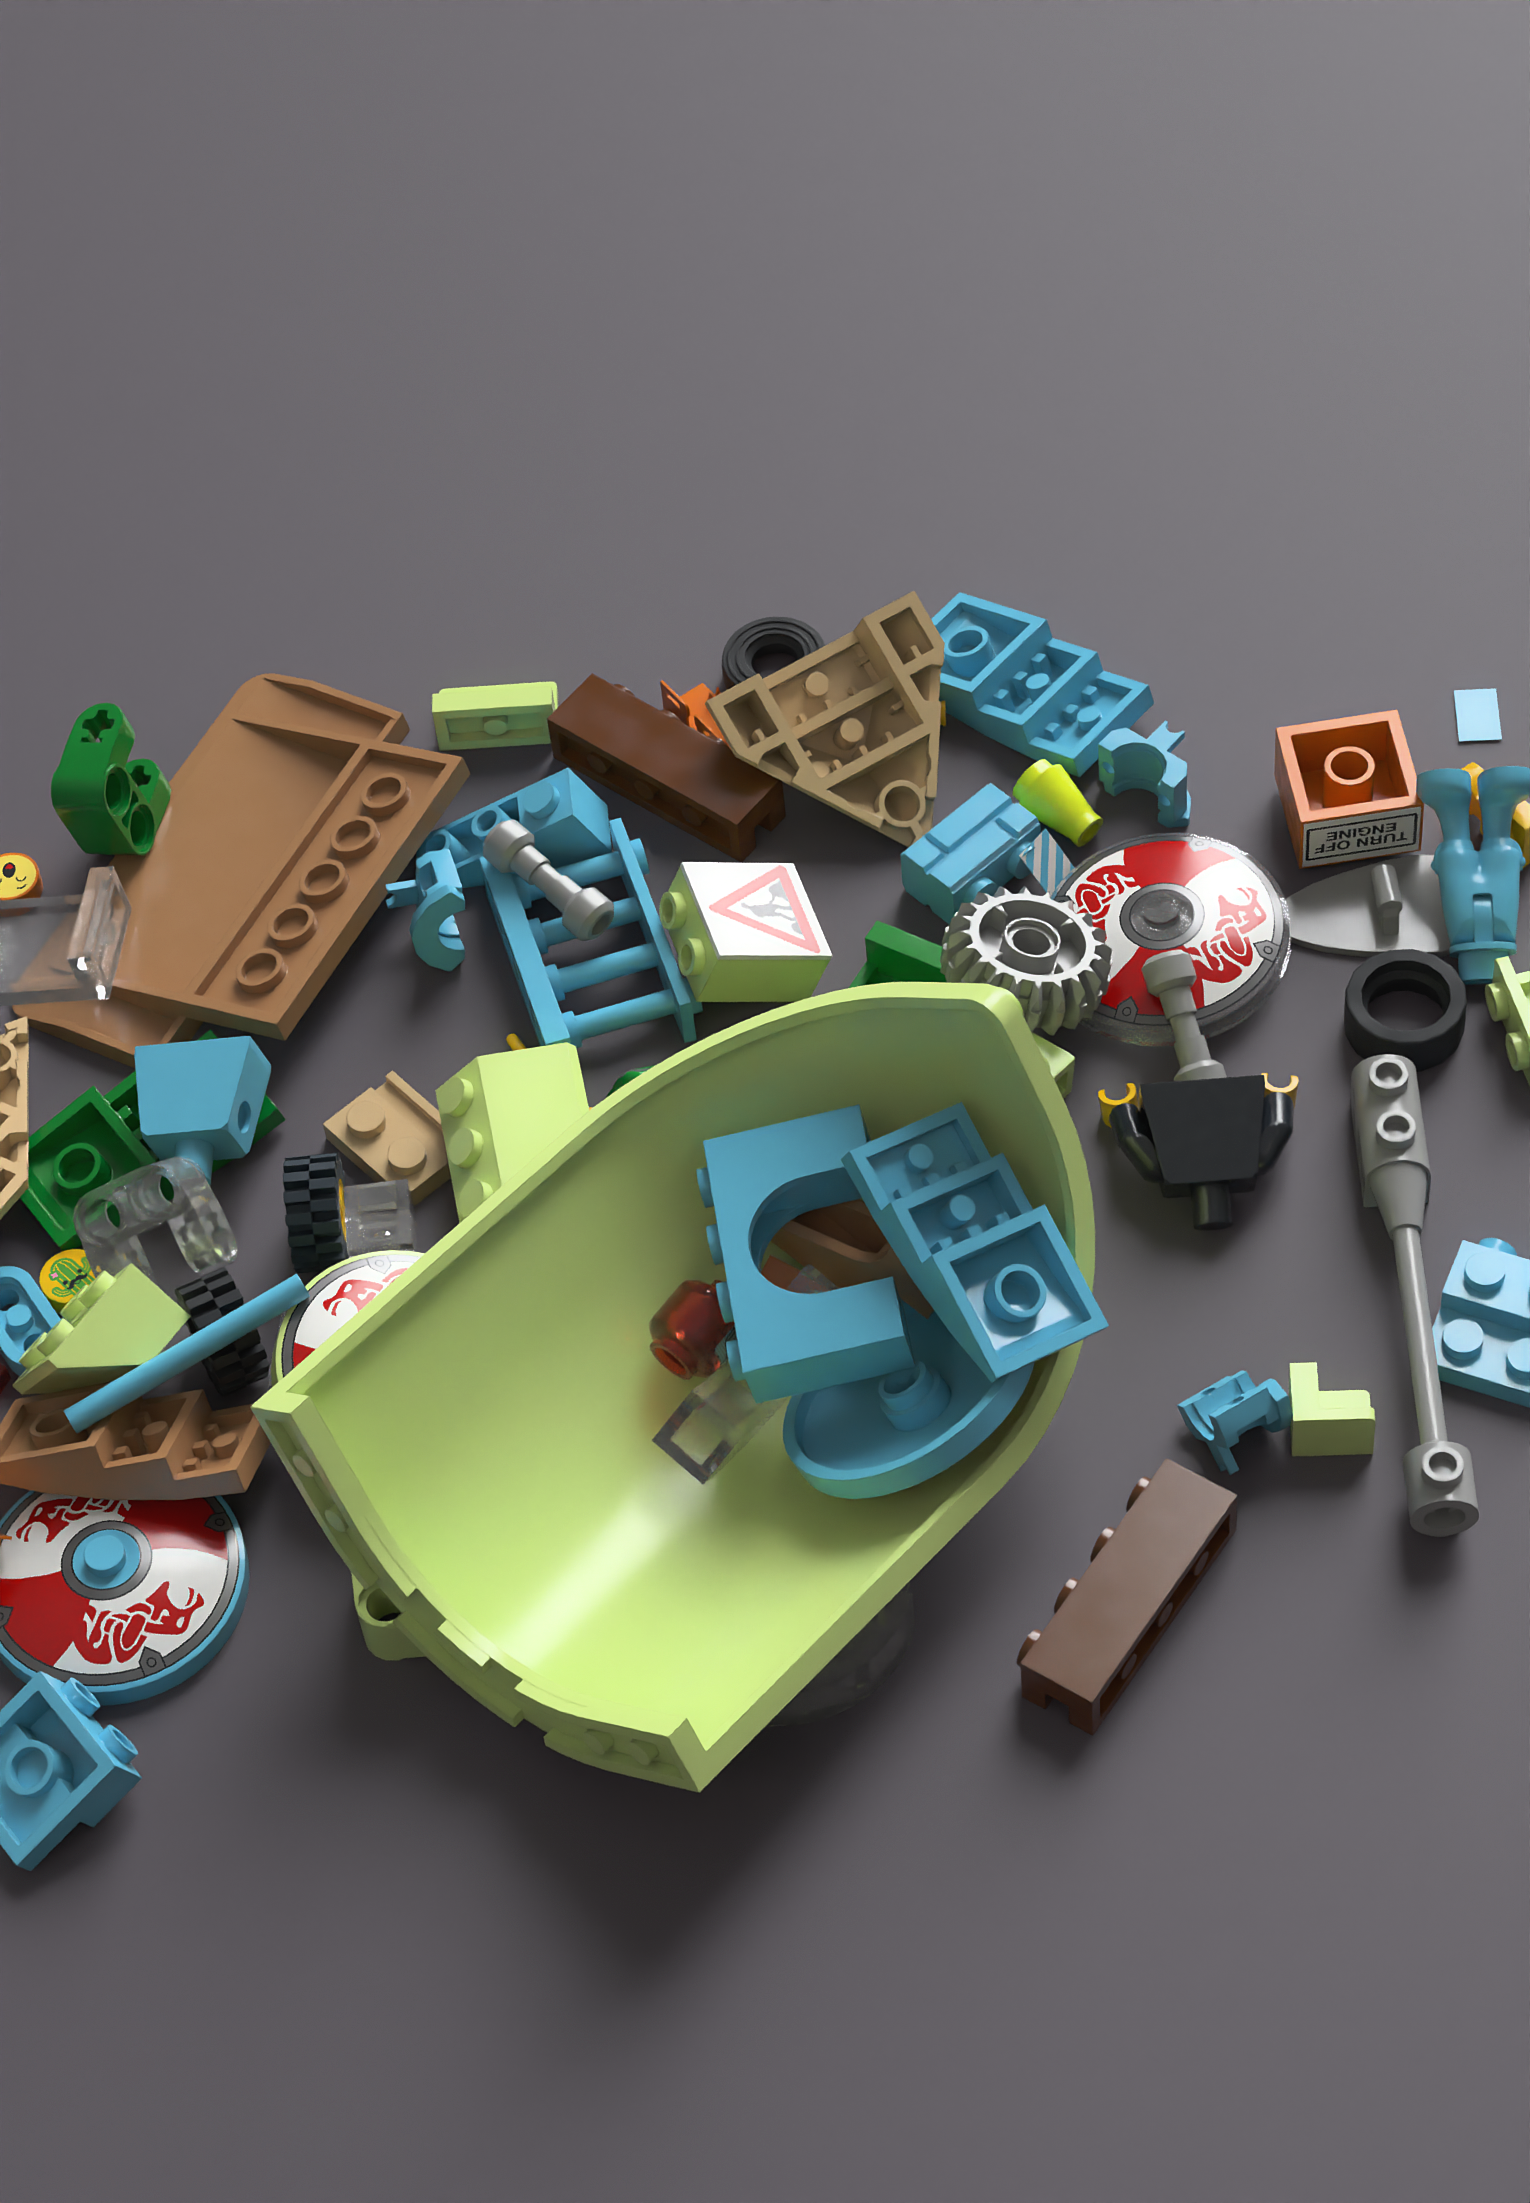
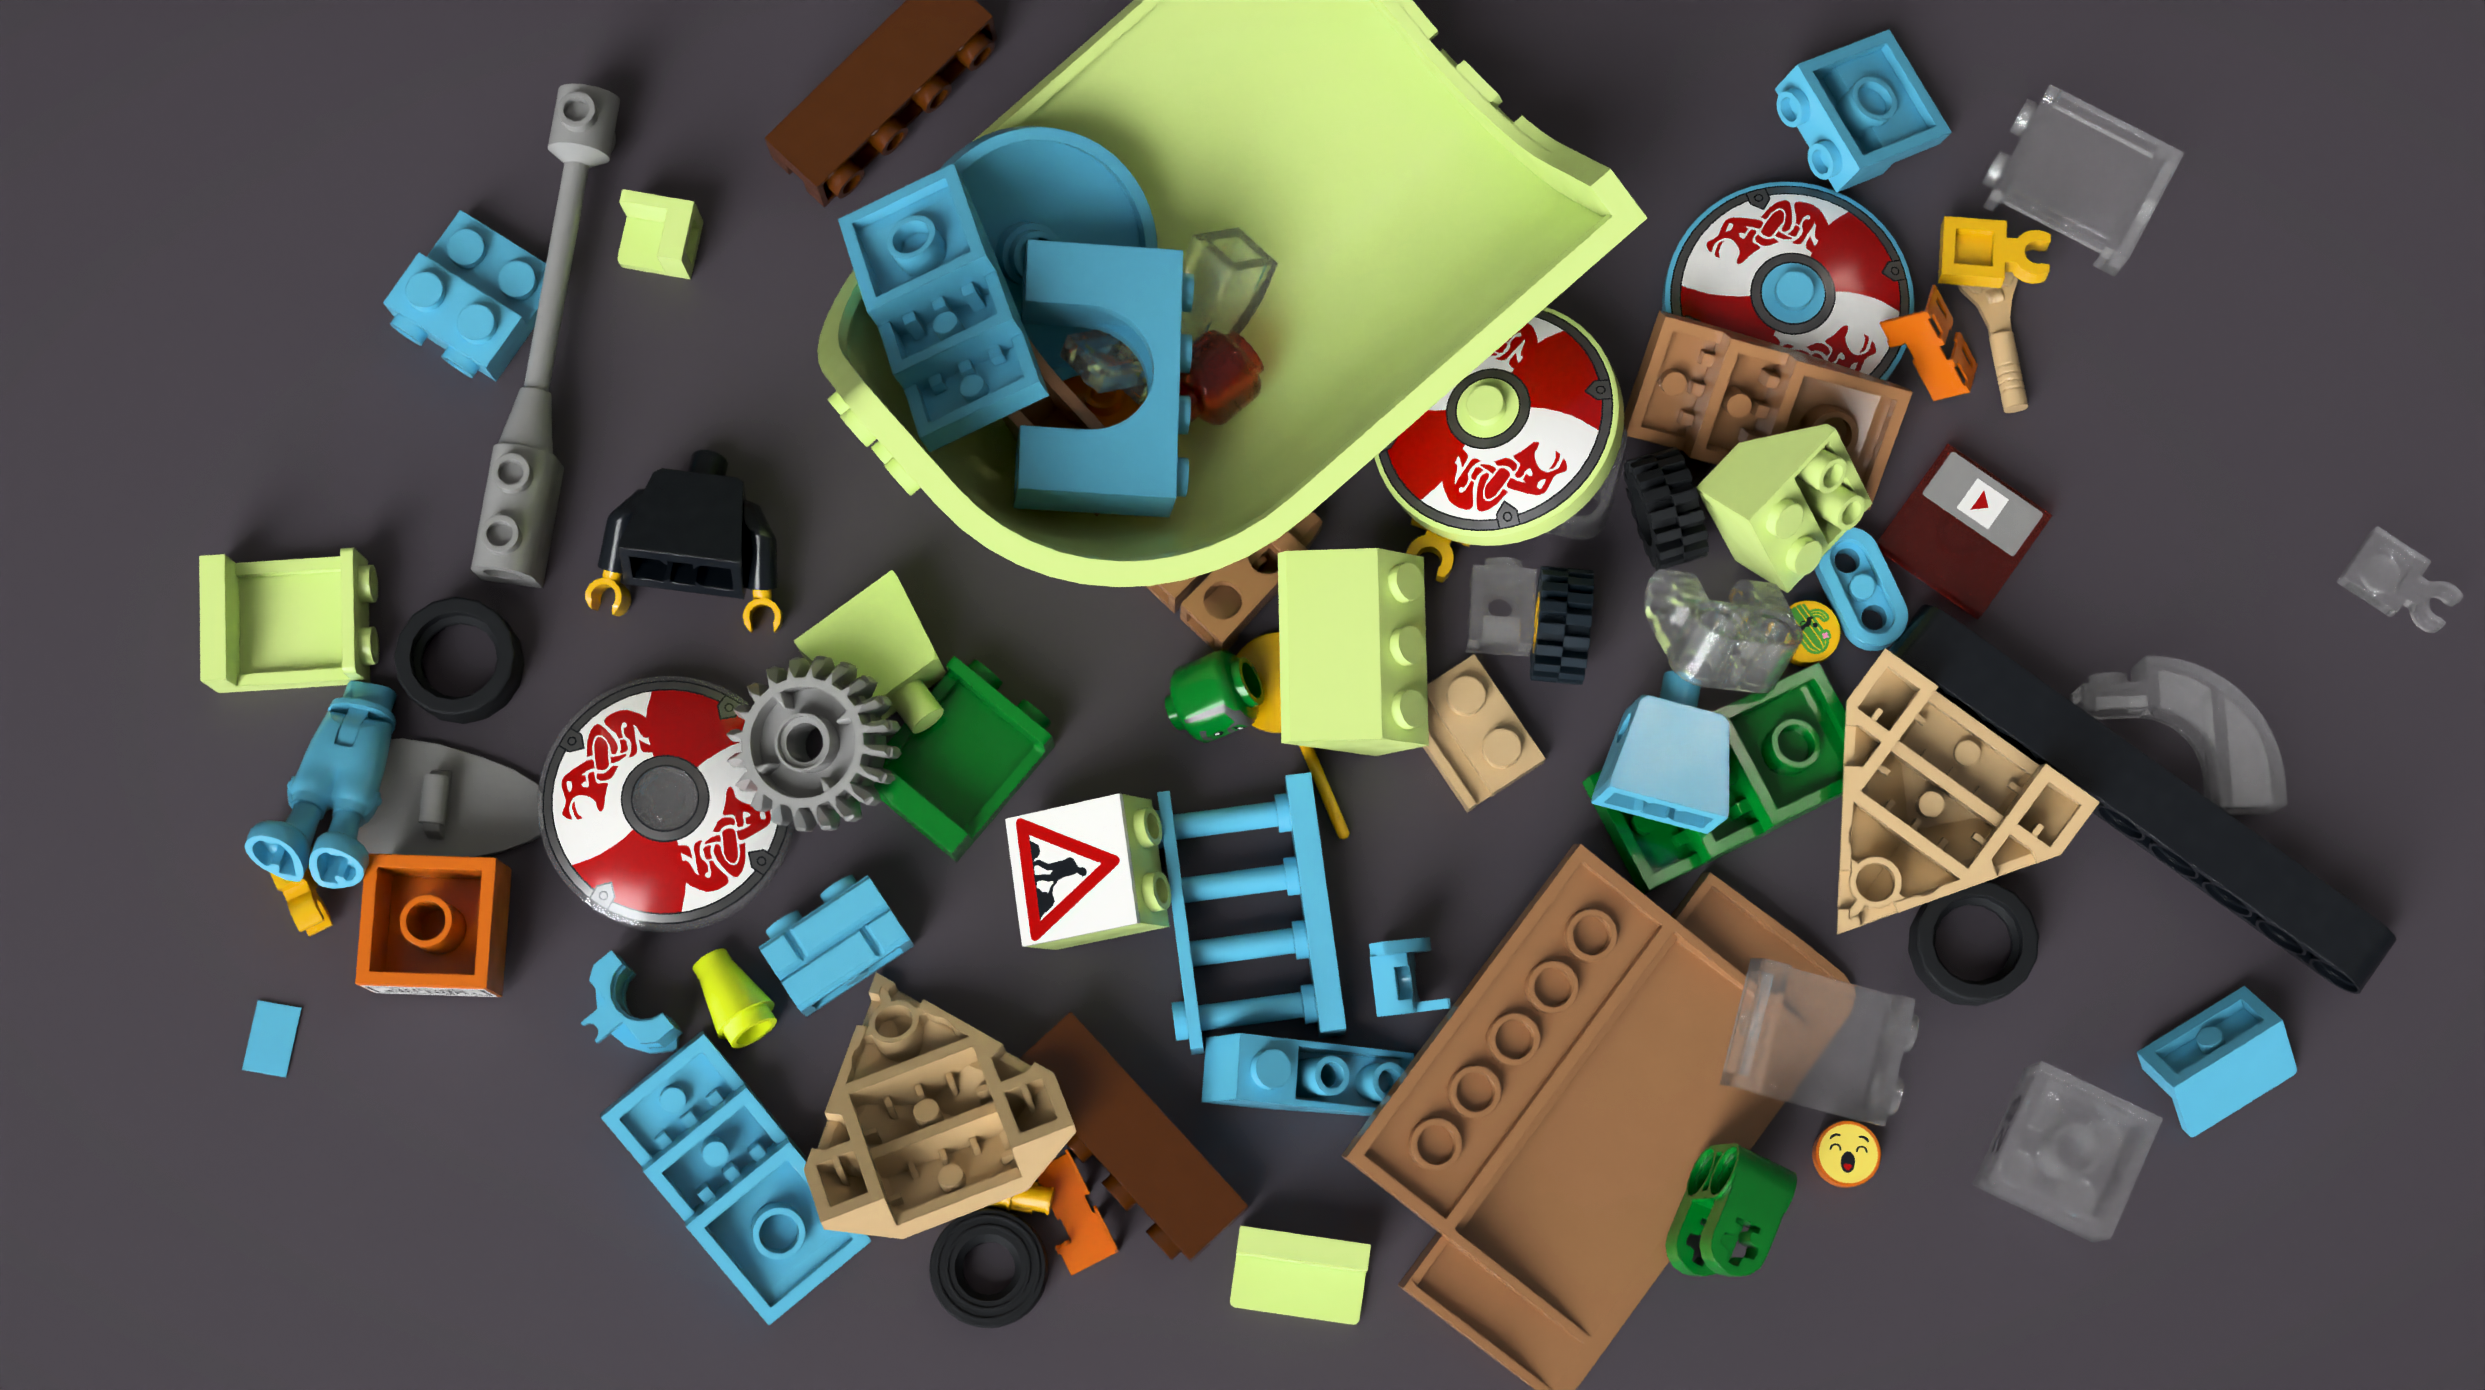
camera: 175 degrees left, 25 degrees up
(186, 1353) = (1701, 441): medium azure bar -> none
(583, 911) = (1310, 1010): light grey piece -> none
(1047, 862) = (760, 915): sticker -> none
(1170, 978) = (677, 706): light grey piece -> none
(1231, 1408) = (743, 242): medium azure piece -> none

